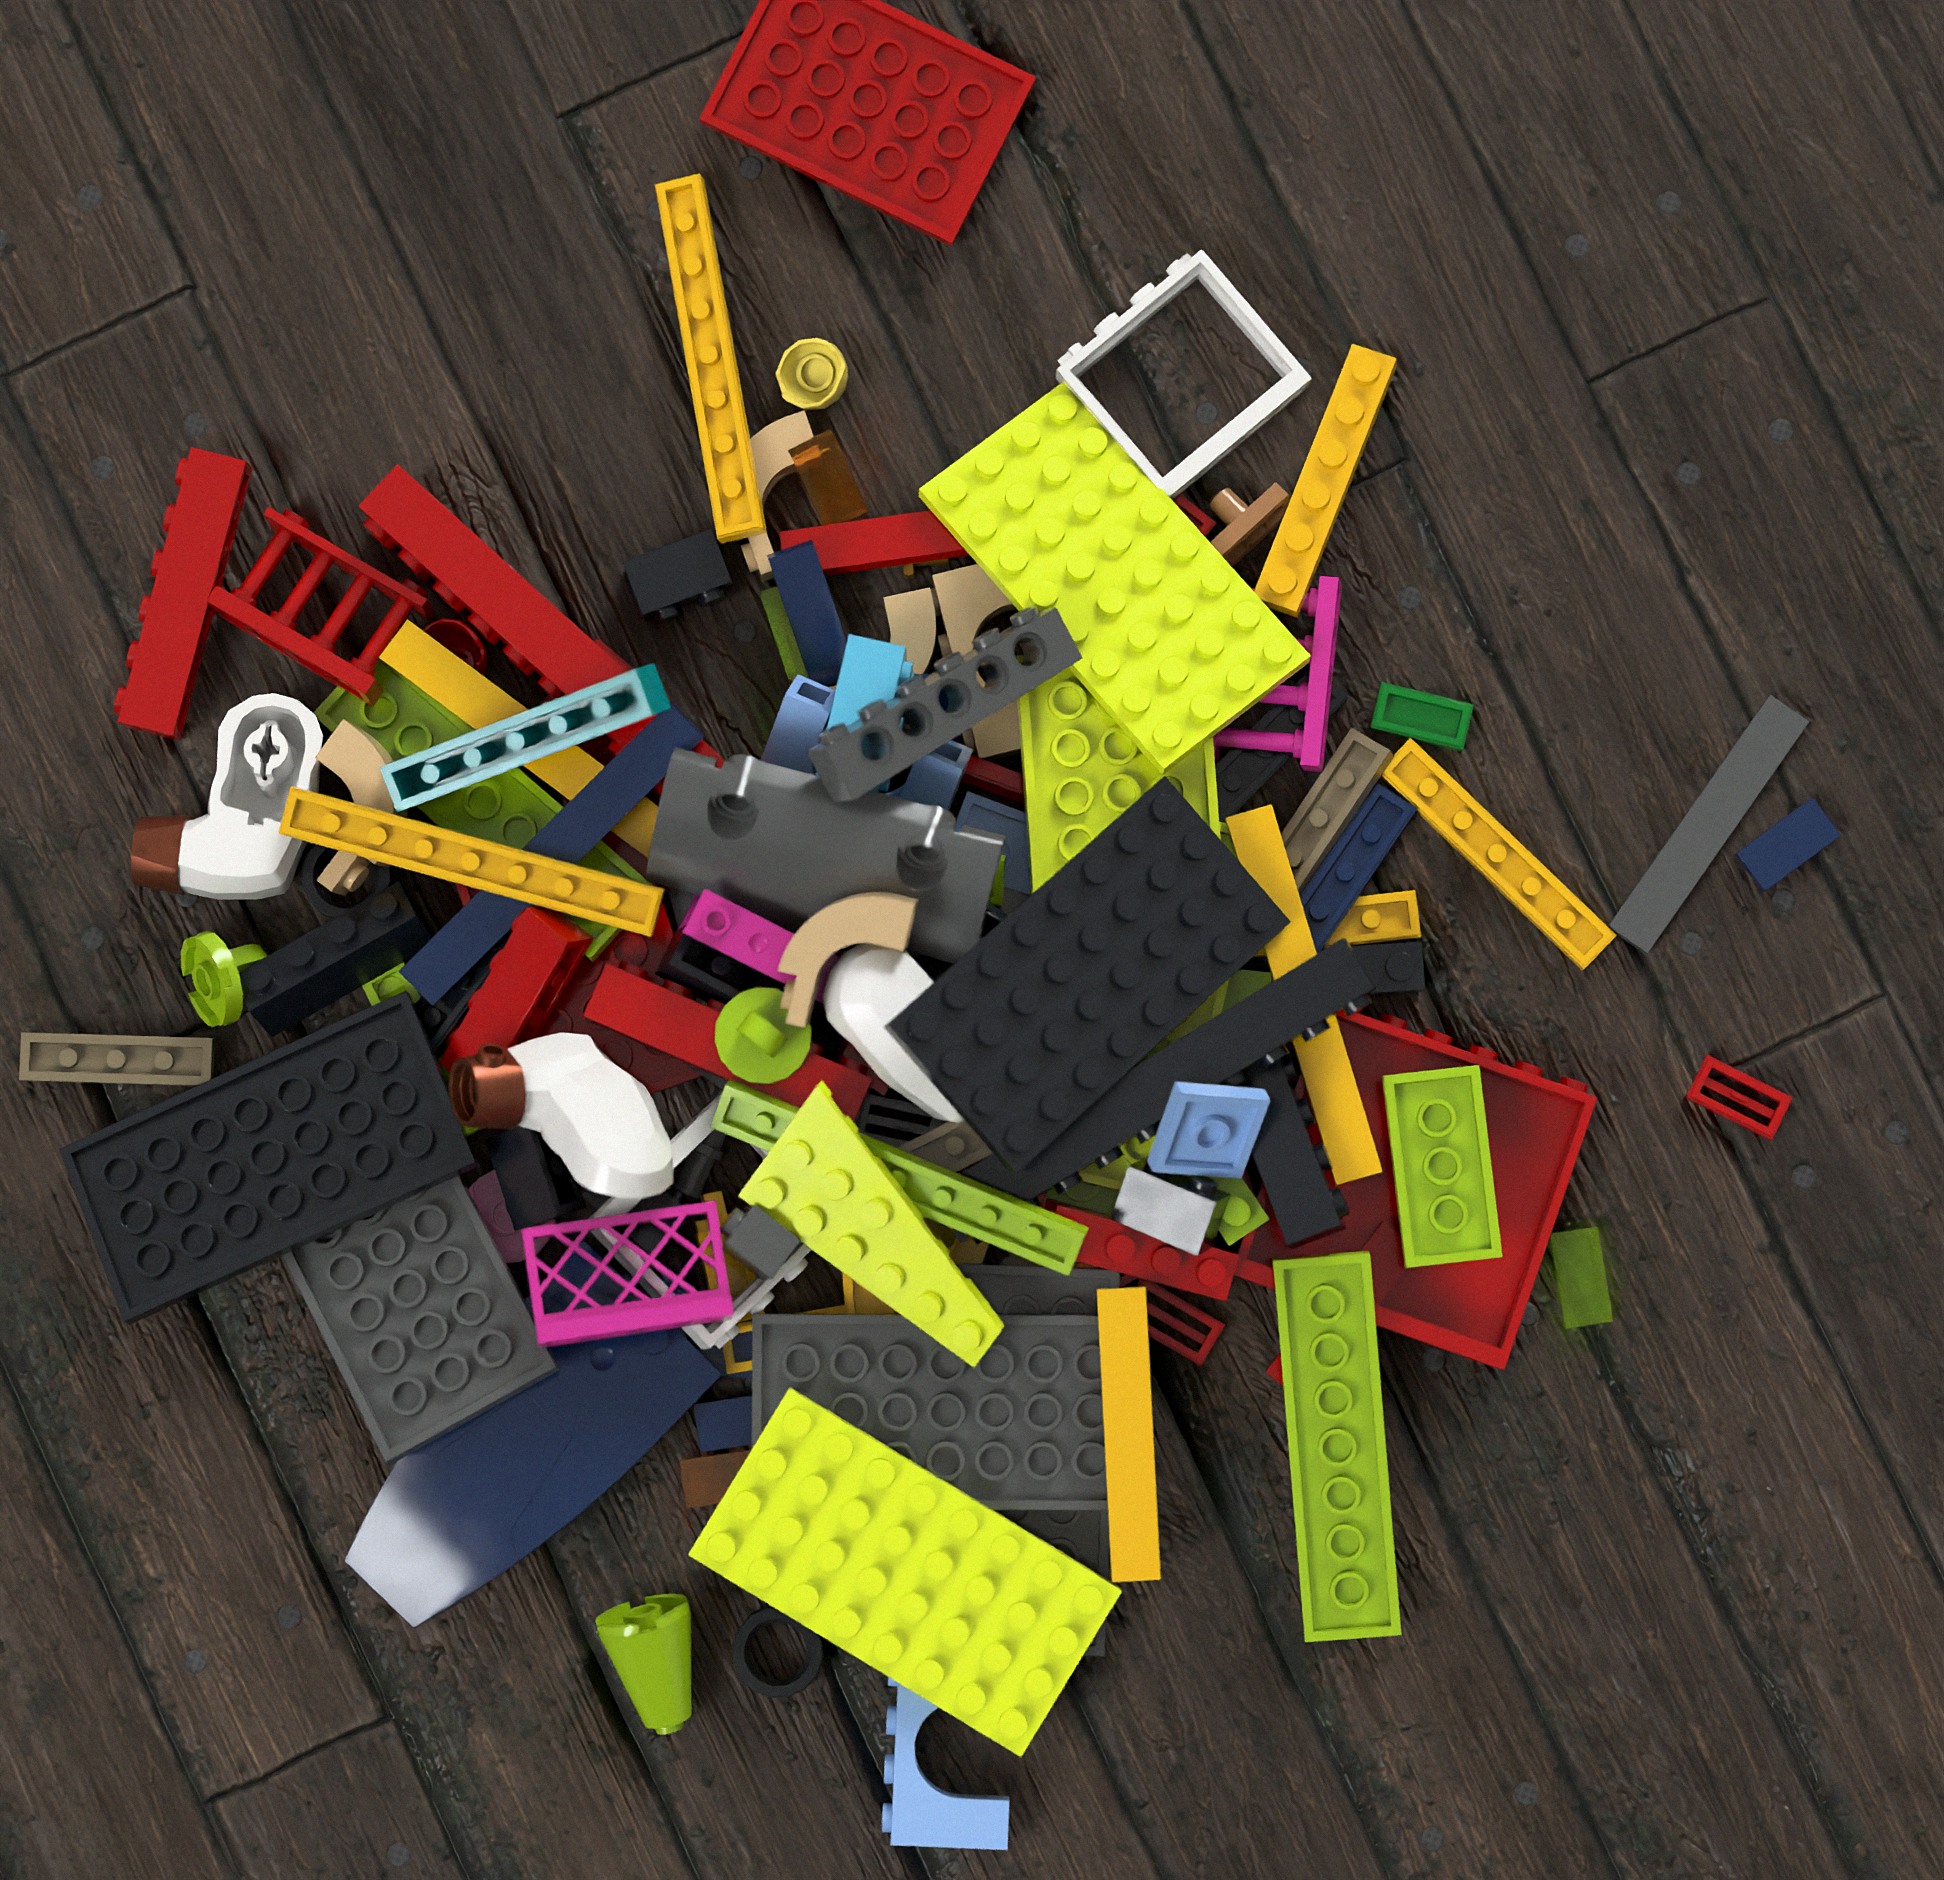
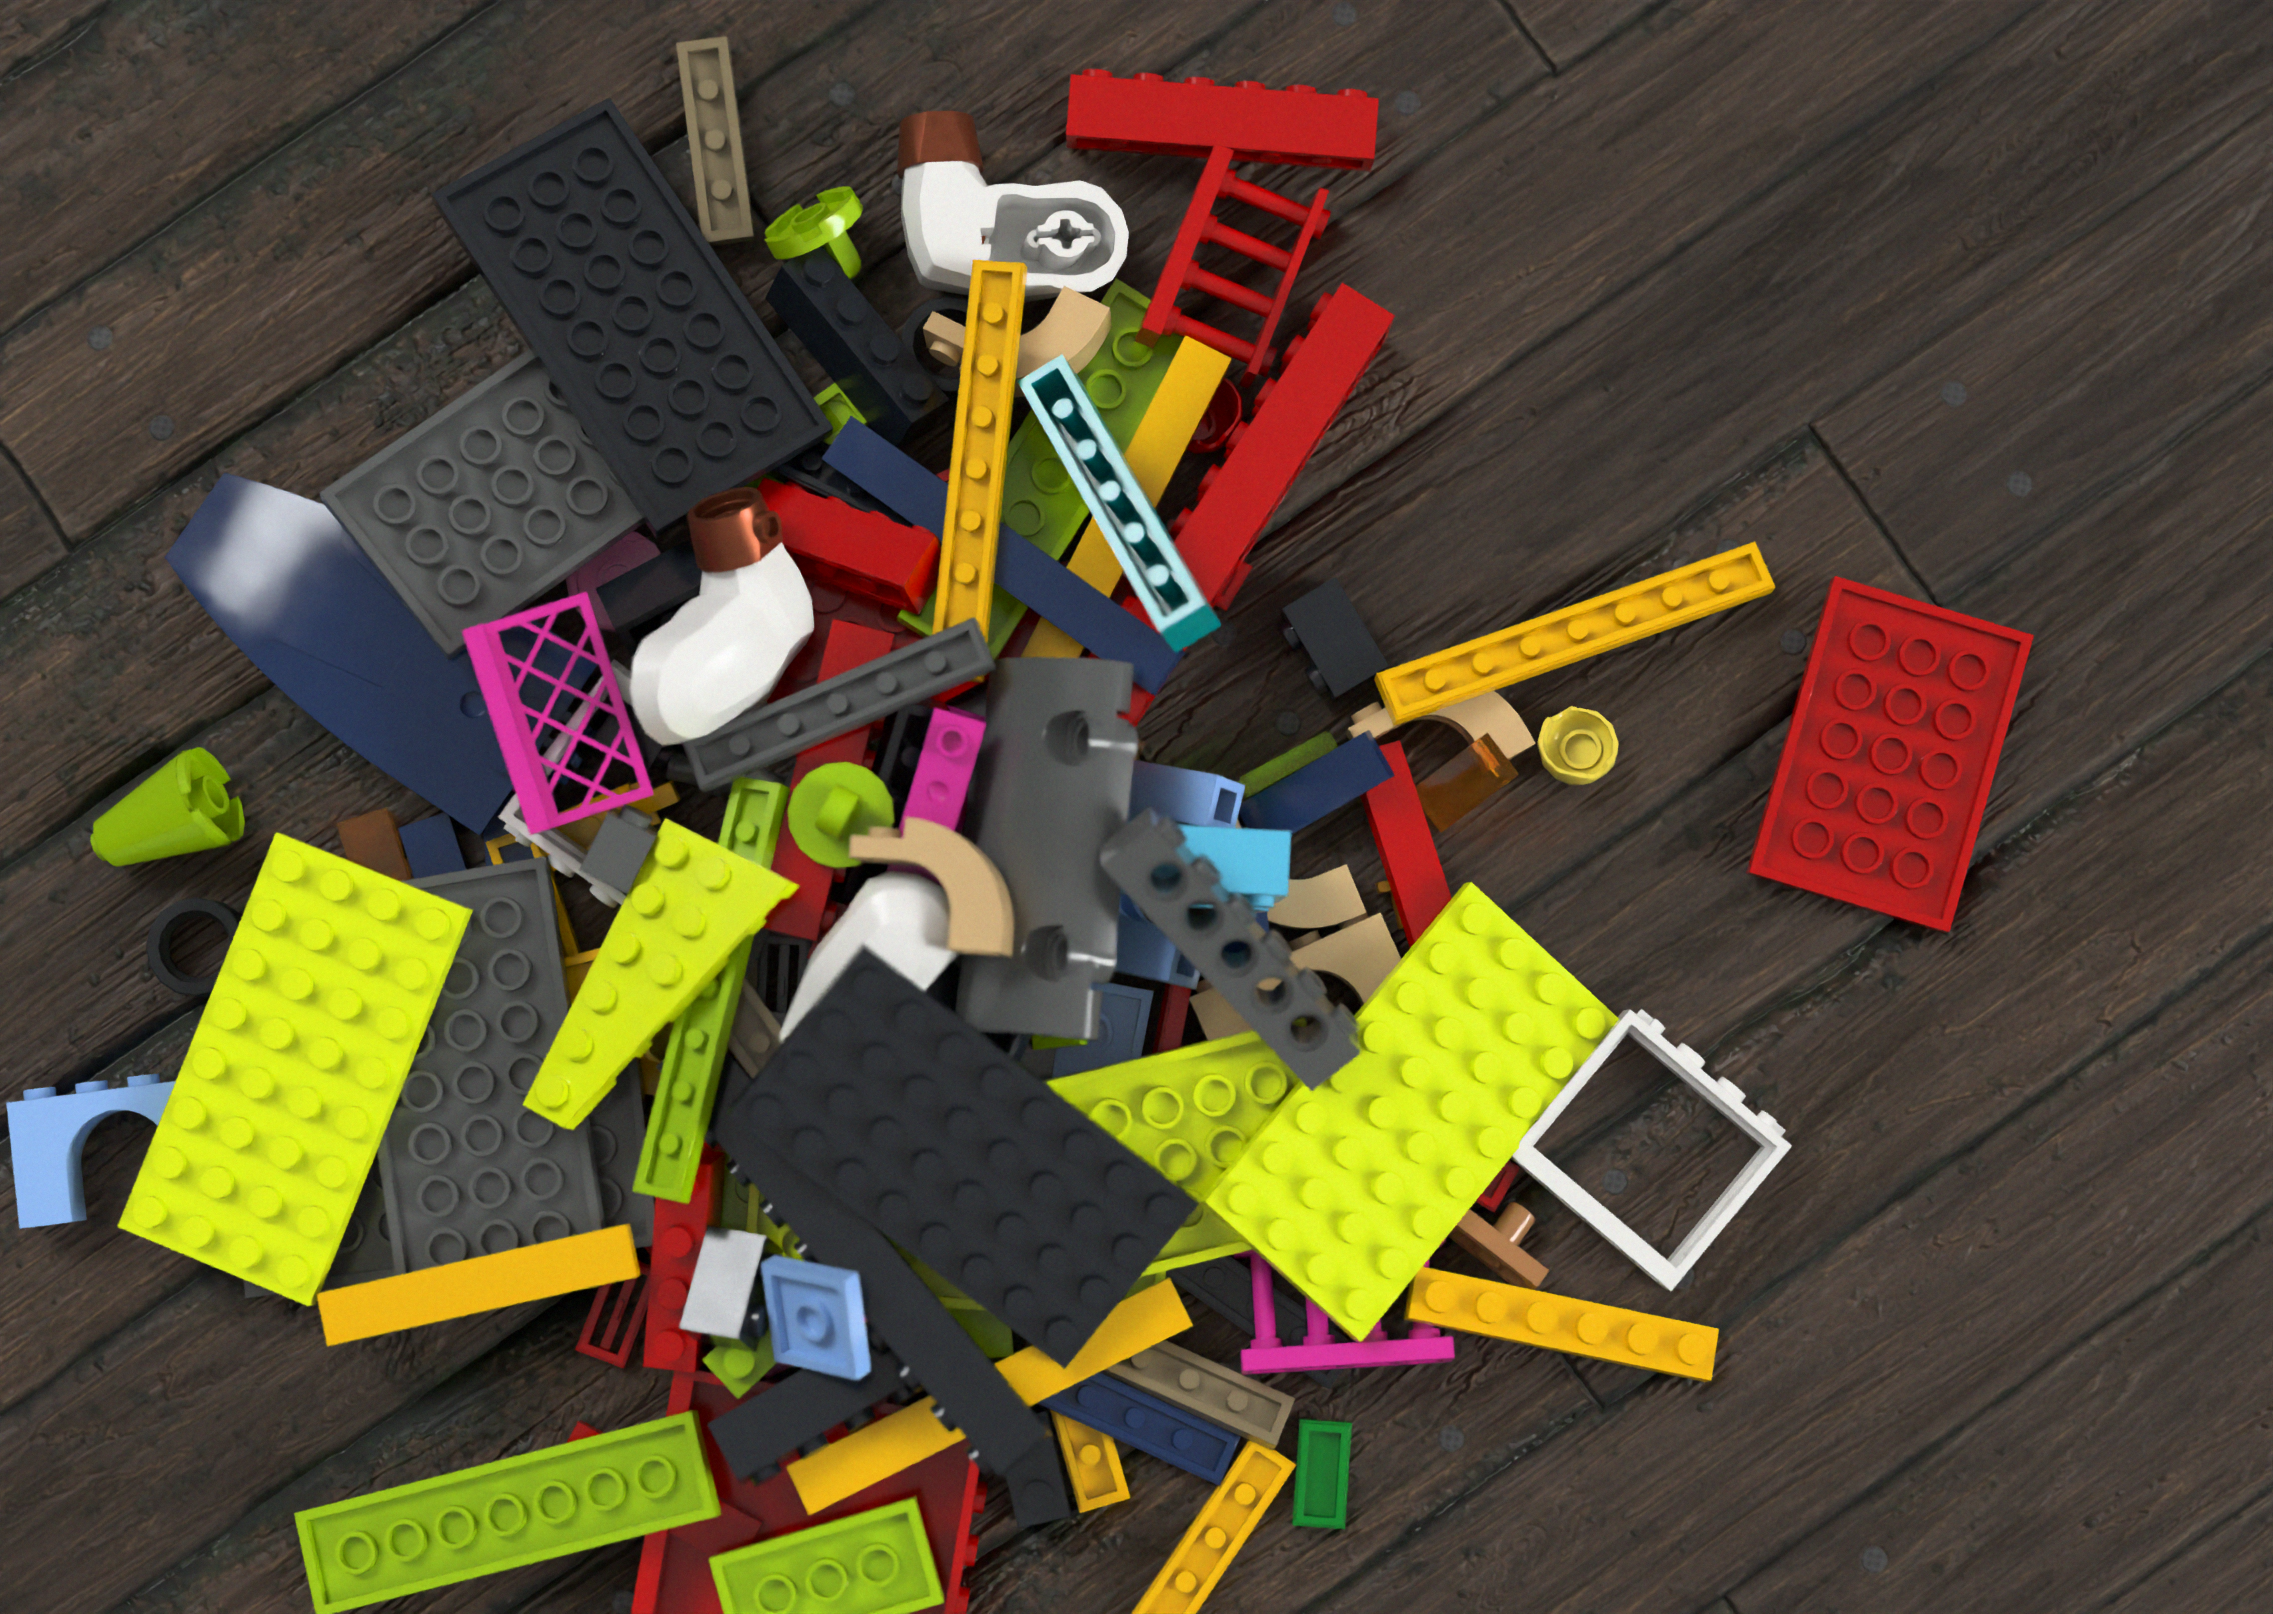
camera: 80 degrees right, 0 degrees up
(663, 1018) = (840, 704): none -> dark grey tile

